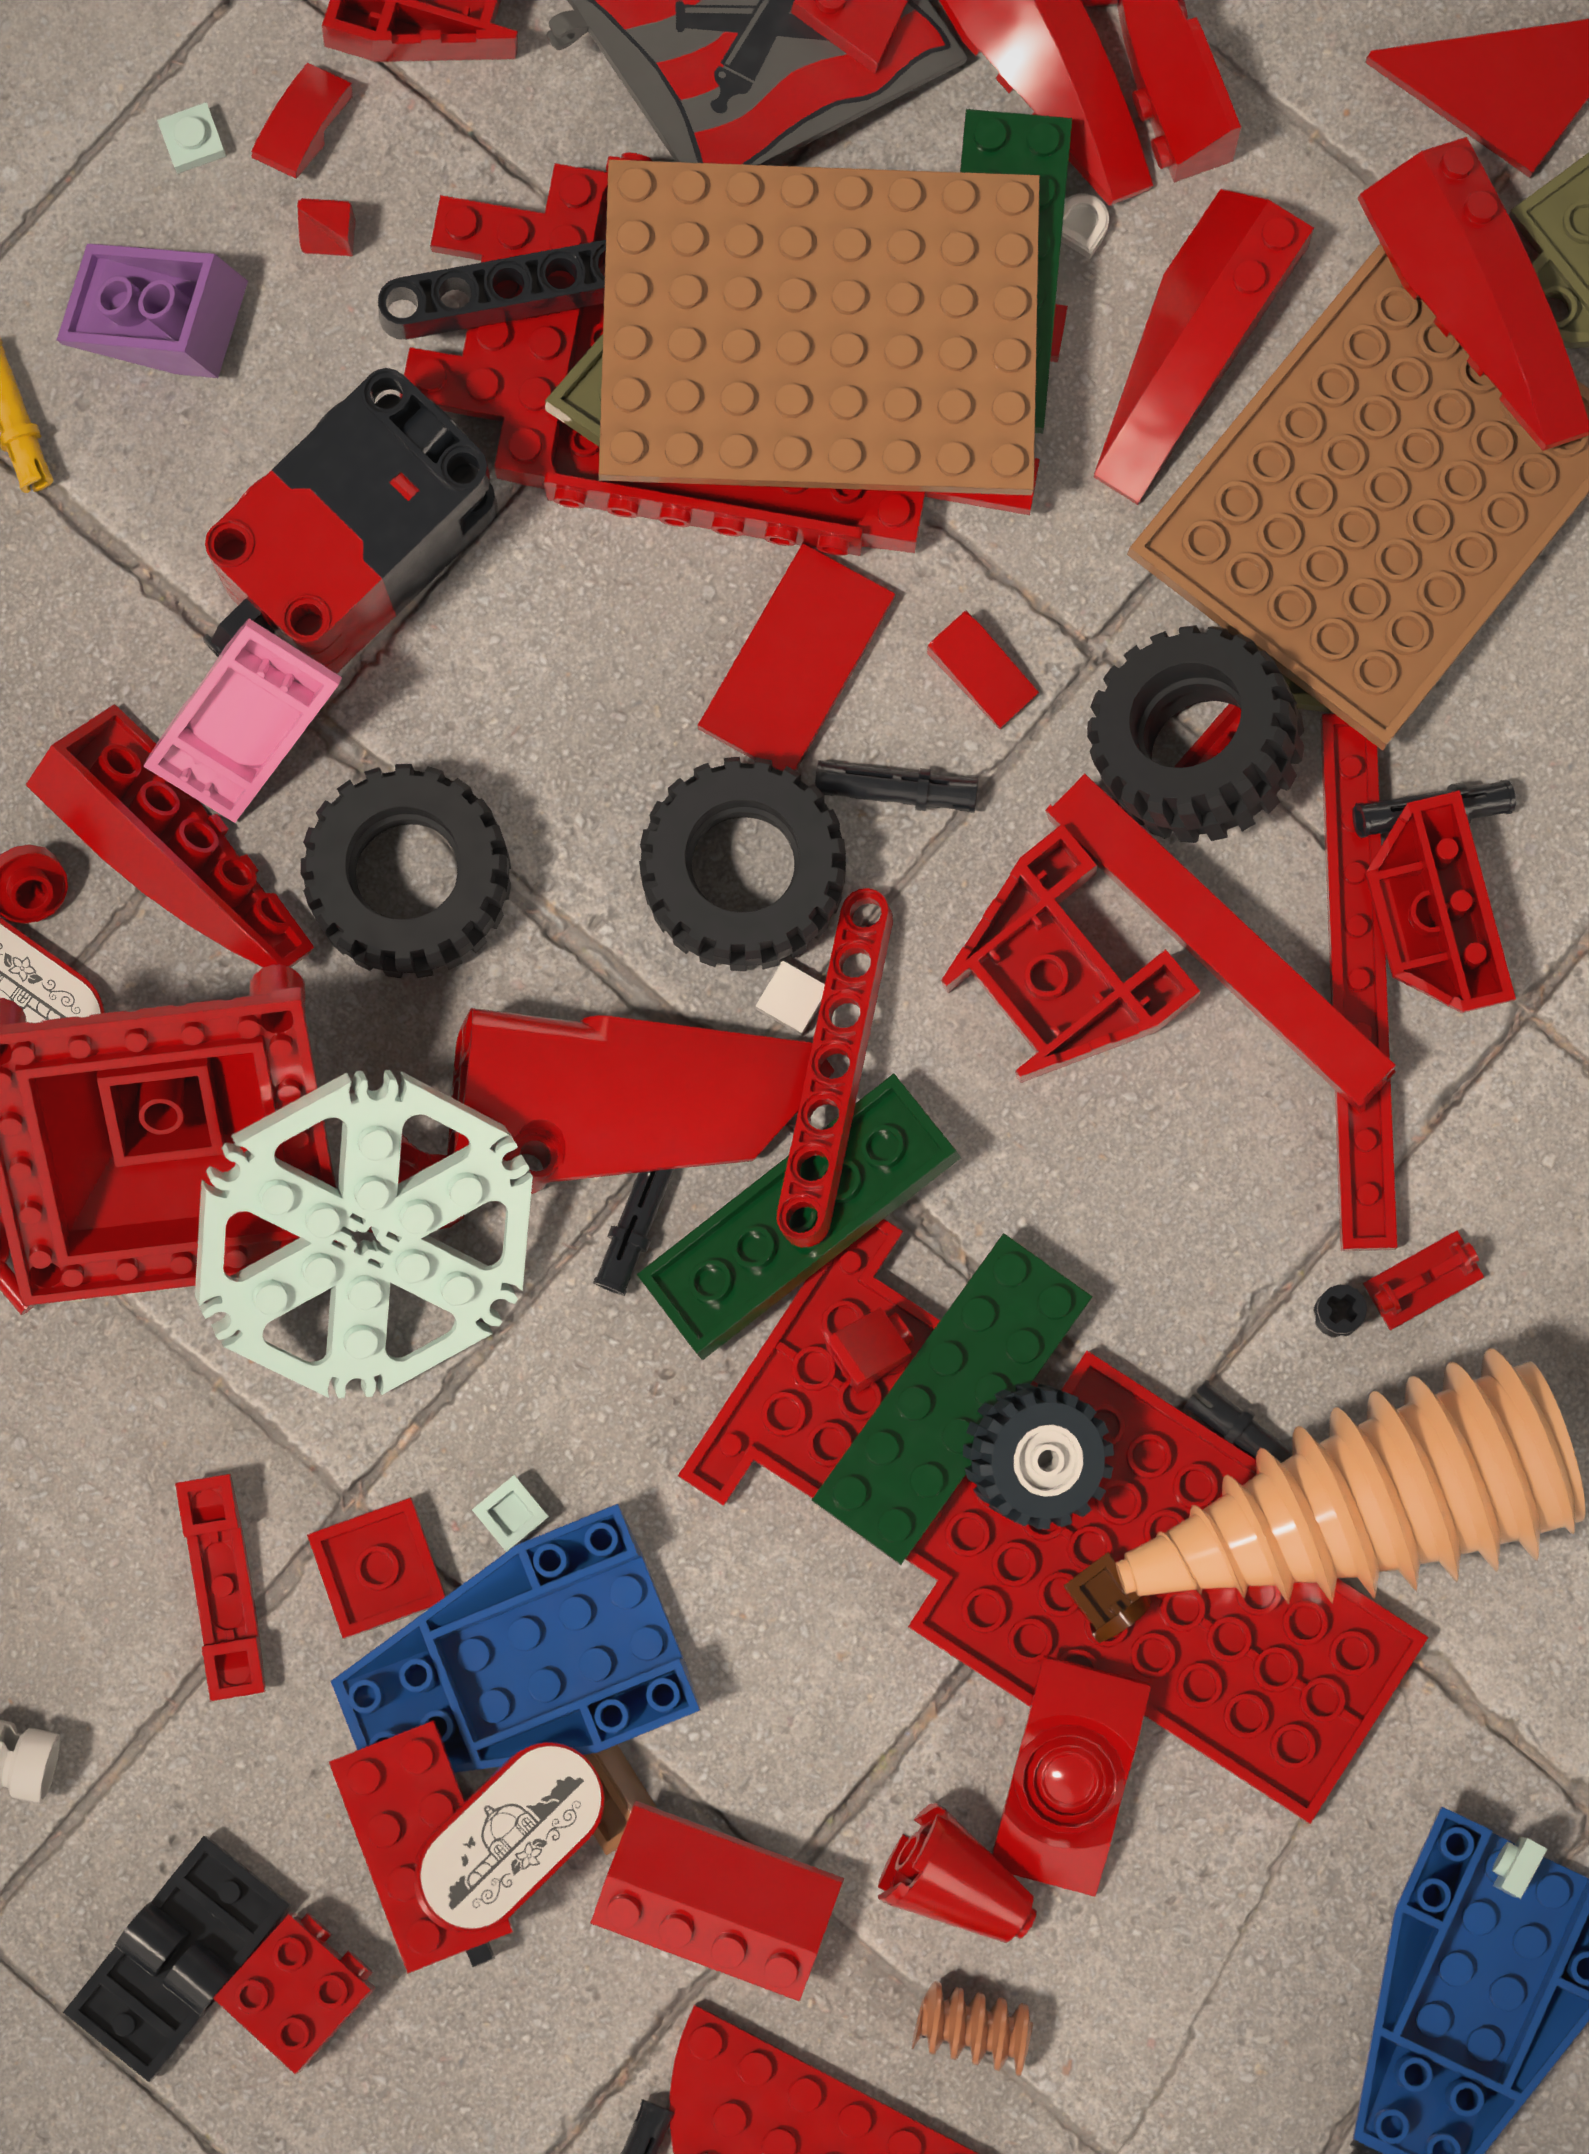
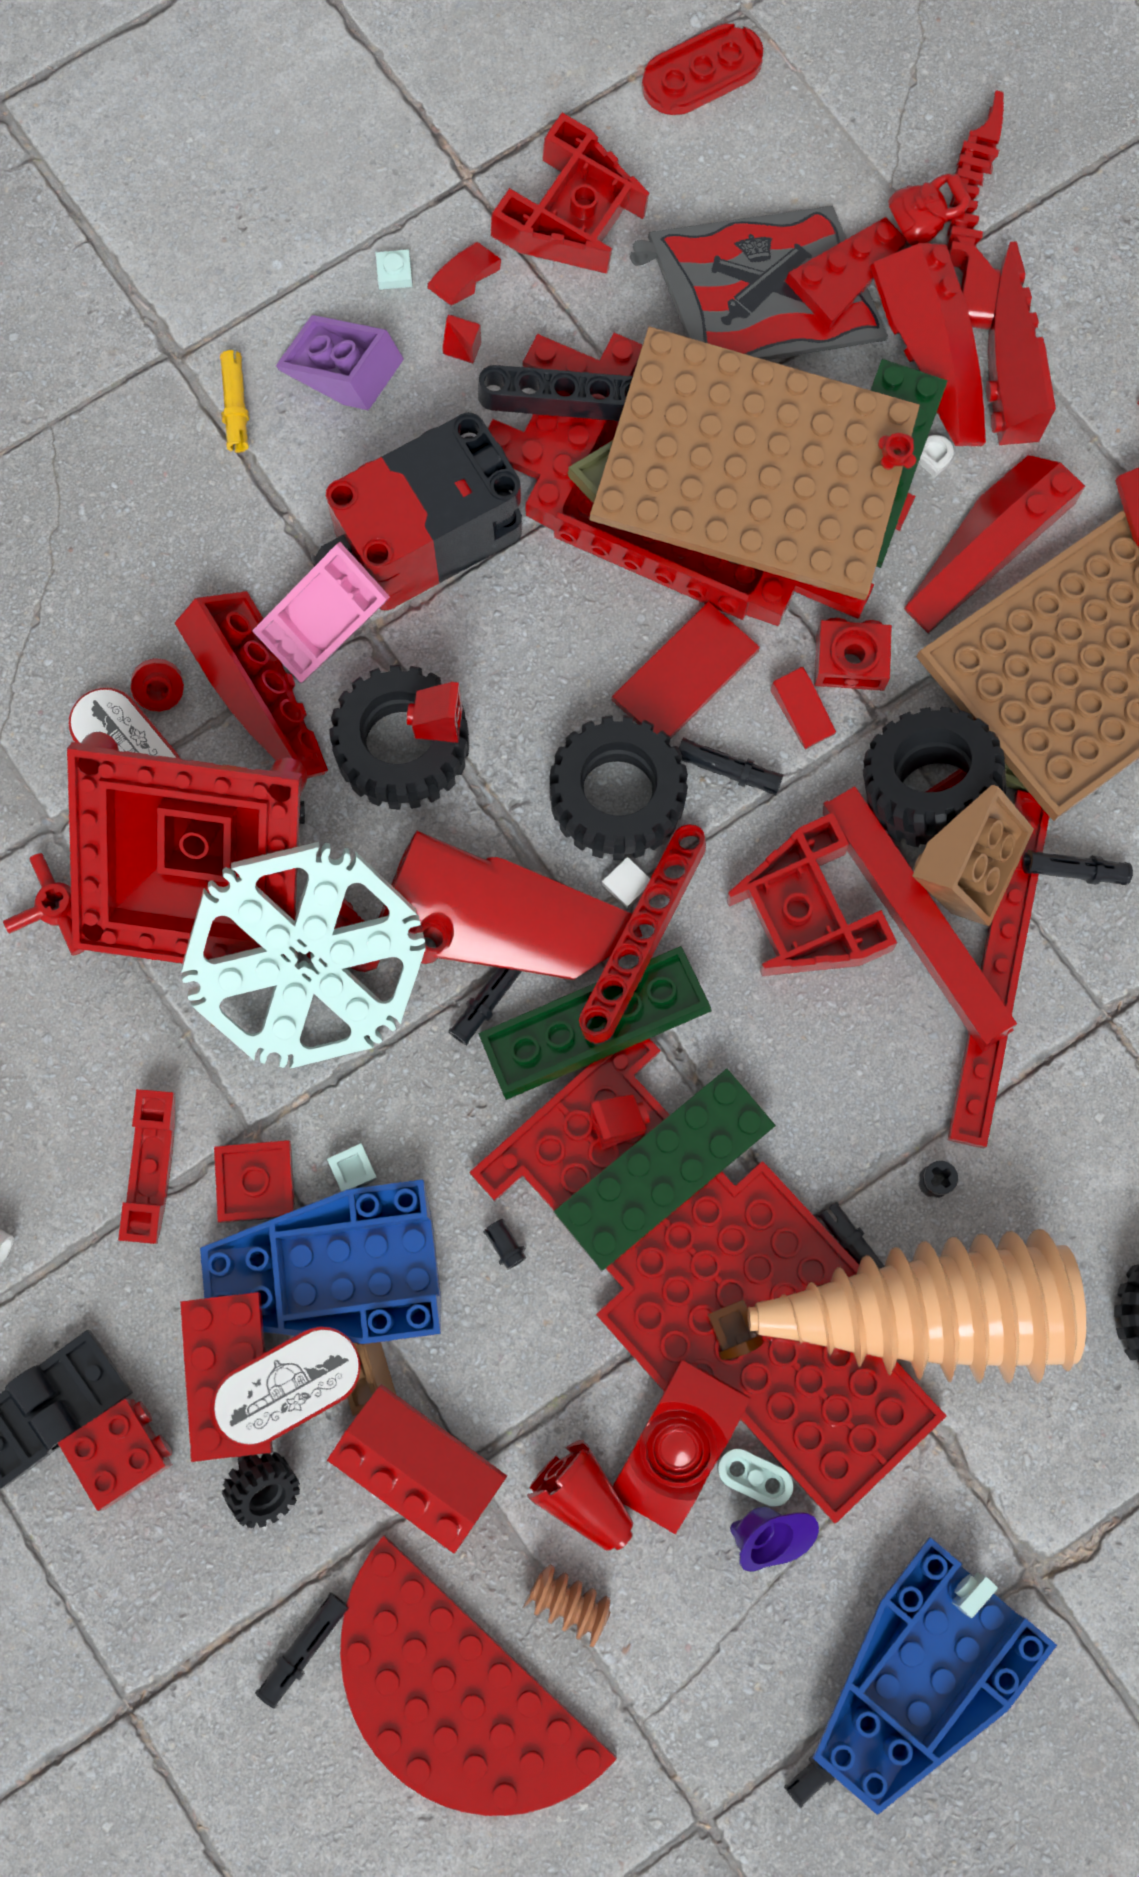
camera: 10 degrees right, 5 degrees down
(455, 833) = (436, 713): none -> red slope
(534, 1980) = (279, 1490): none -> black tyre
(755, 1562) = (505, 1244): none -> black pin
(1028, 248) = (900, 442): none -> red plate
(1038, 1455) = (713, 1221): black wheel -> none
(1052, 544) = (866, 640): none -> red brick
(1184, 1790) = (754, 1477): none -> light aqua plate
(1230, 1866) = (773, 1538): none -> dark purple piece
(1281, 838) = (975, 857): none -> medium nougat slope
(1424, 1280) = (999, 1173): red hinge -> none
(1438, 908) = (1067, 931): red wedge -> none

